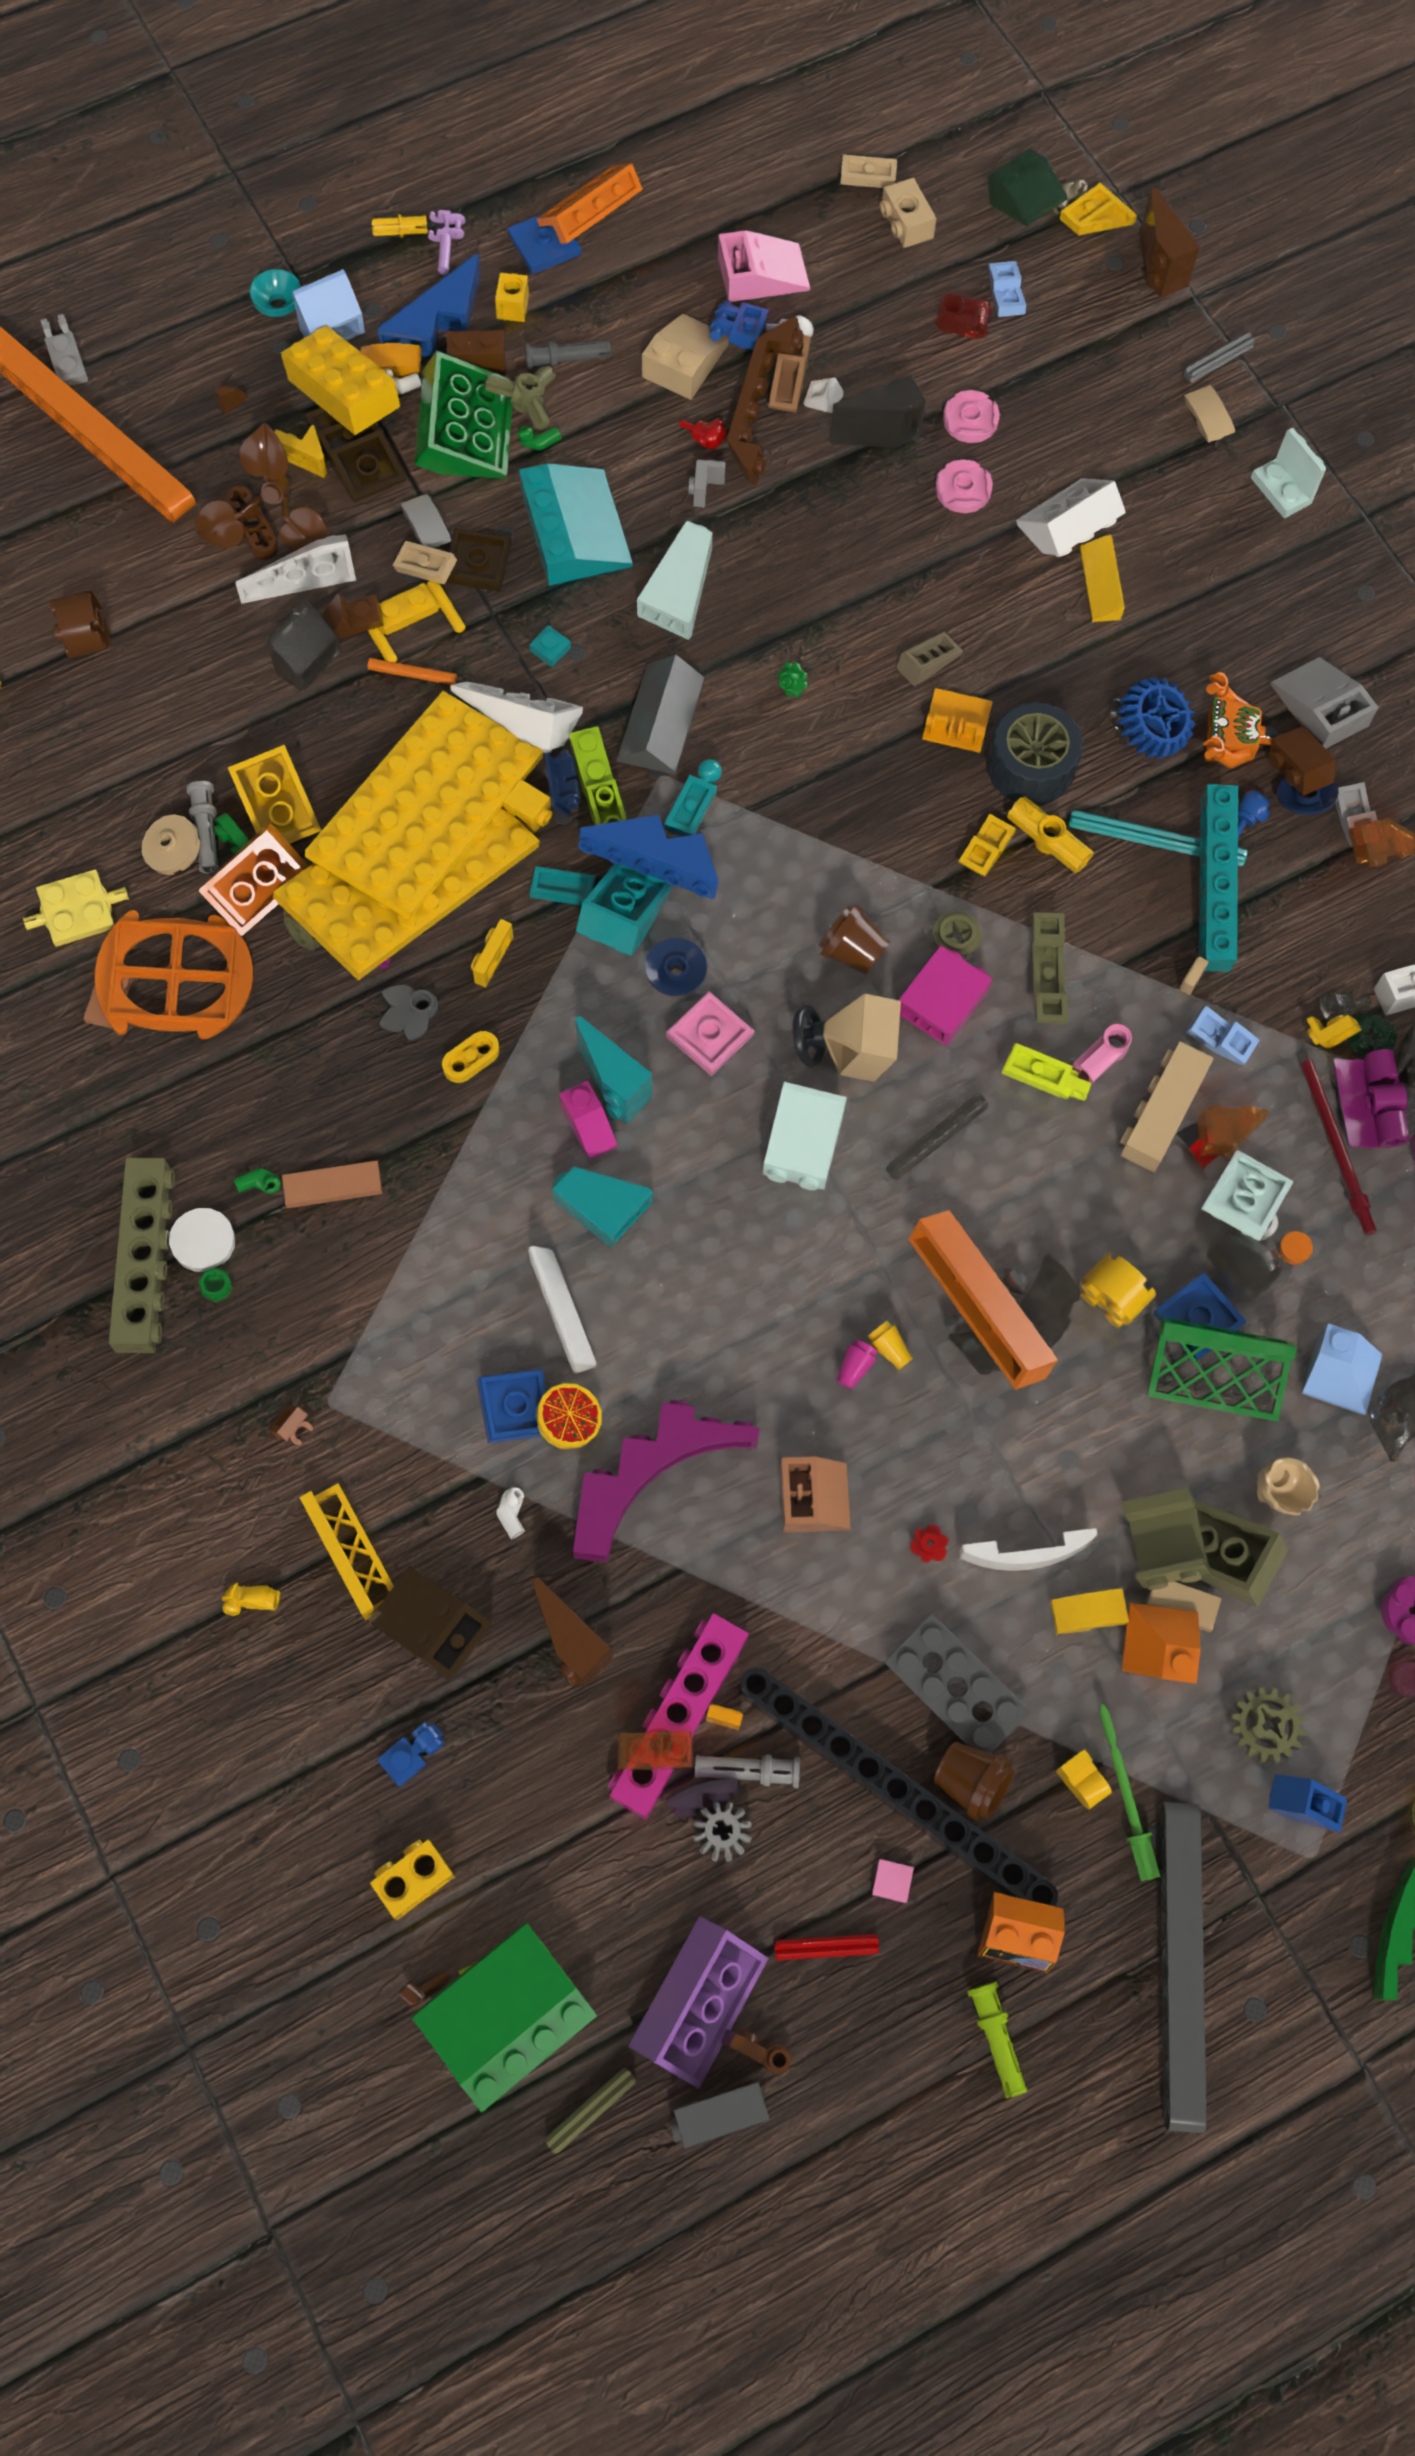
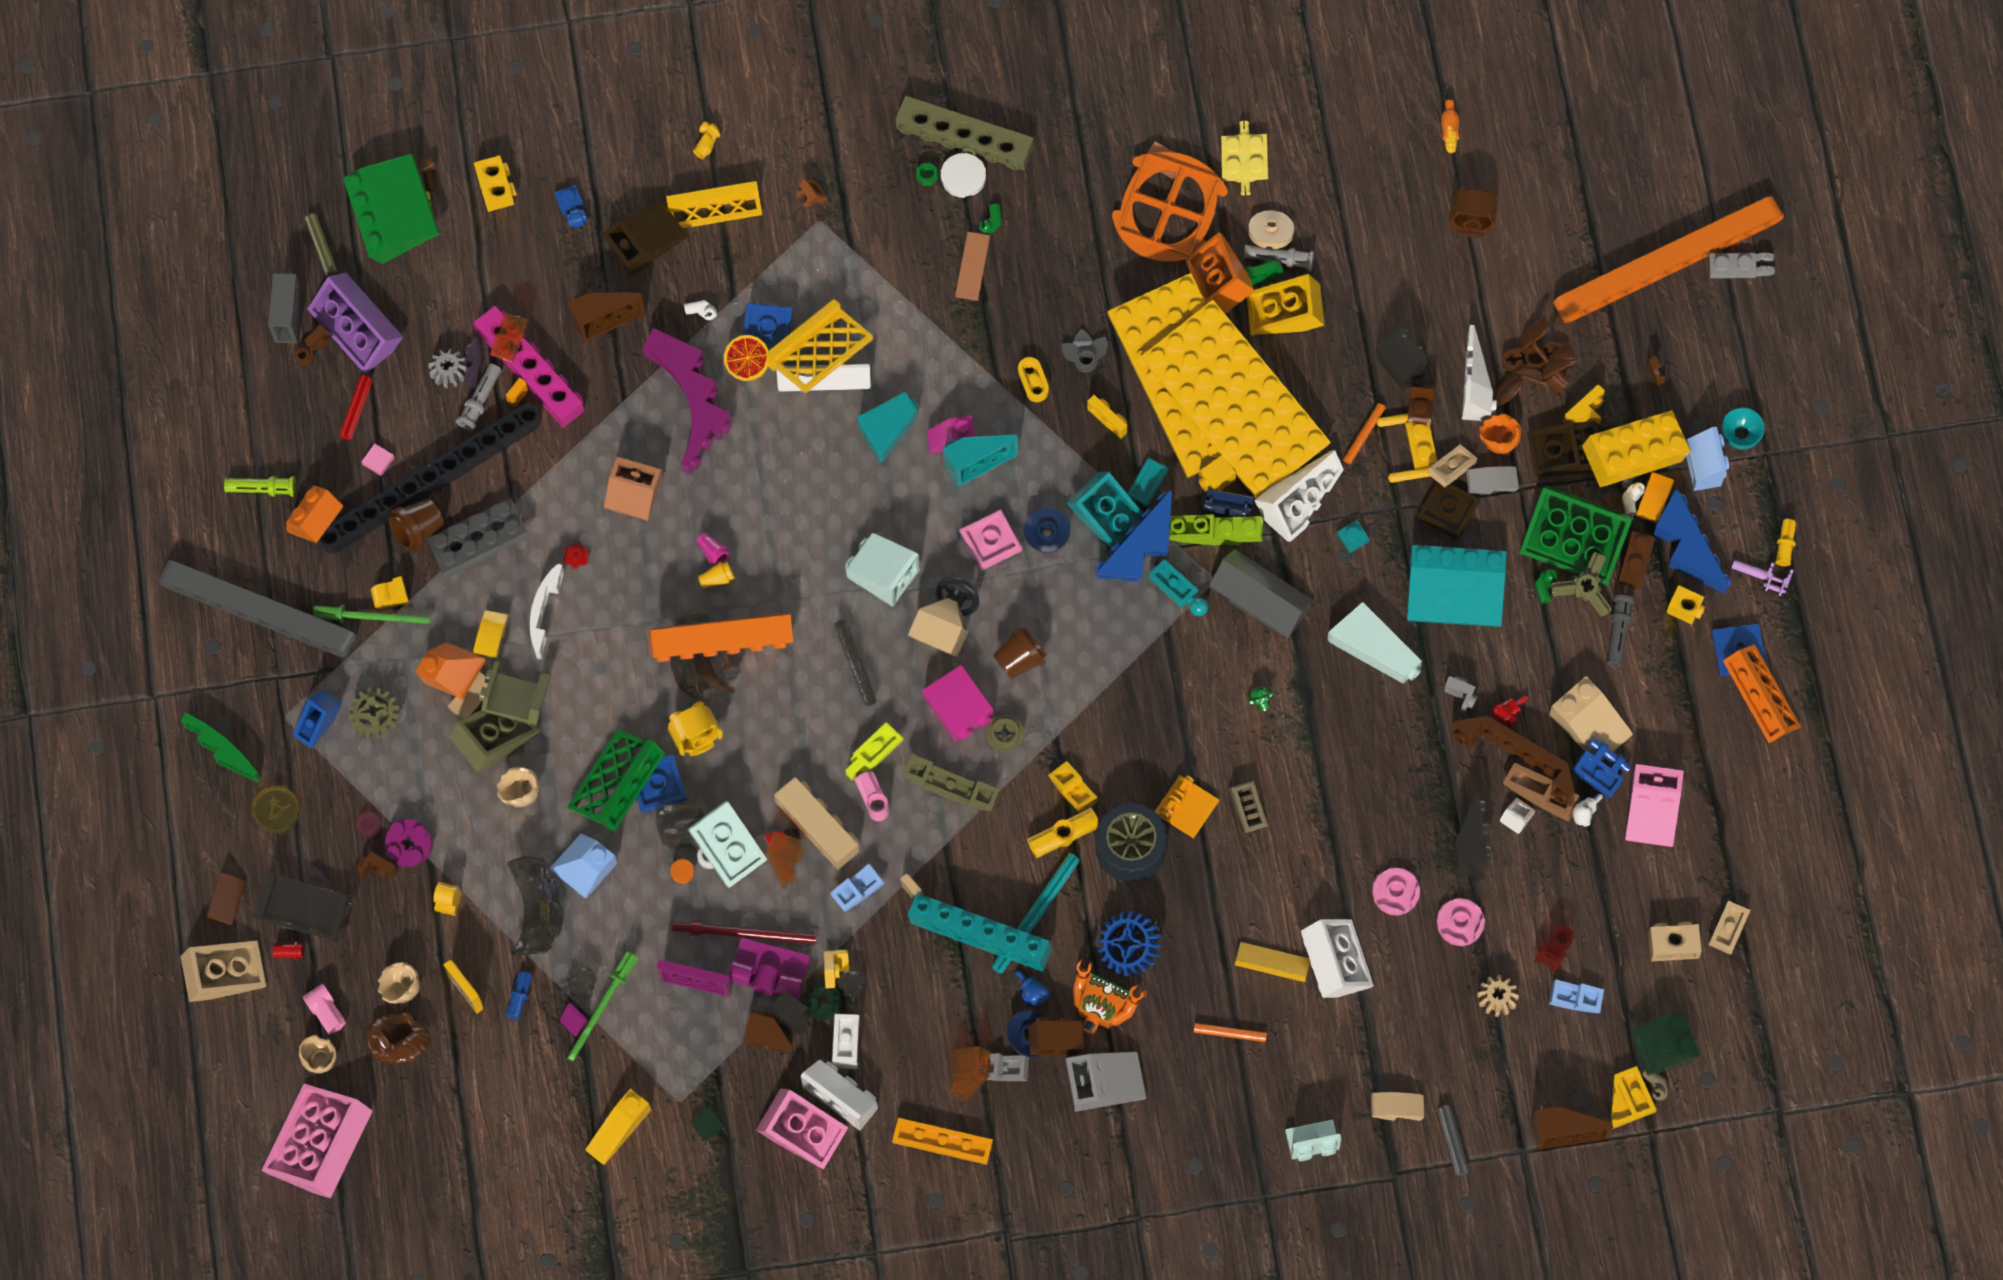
camera: 115 degrees right, 0 degrees up
(367, 520) = (1500, 433): none -> orange hair
(513, 1345) = (804, 337): none -> yellow fence
(1042, 354) = (1494, 1004): none -> tan gear
(1202, 599) = (1230, 1032): none -> orange bar

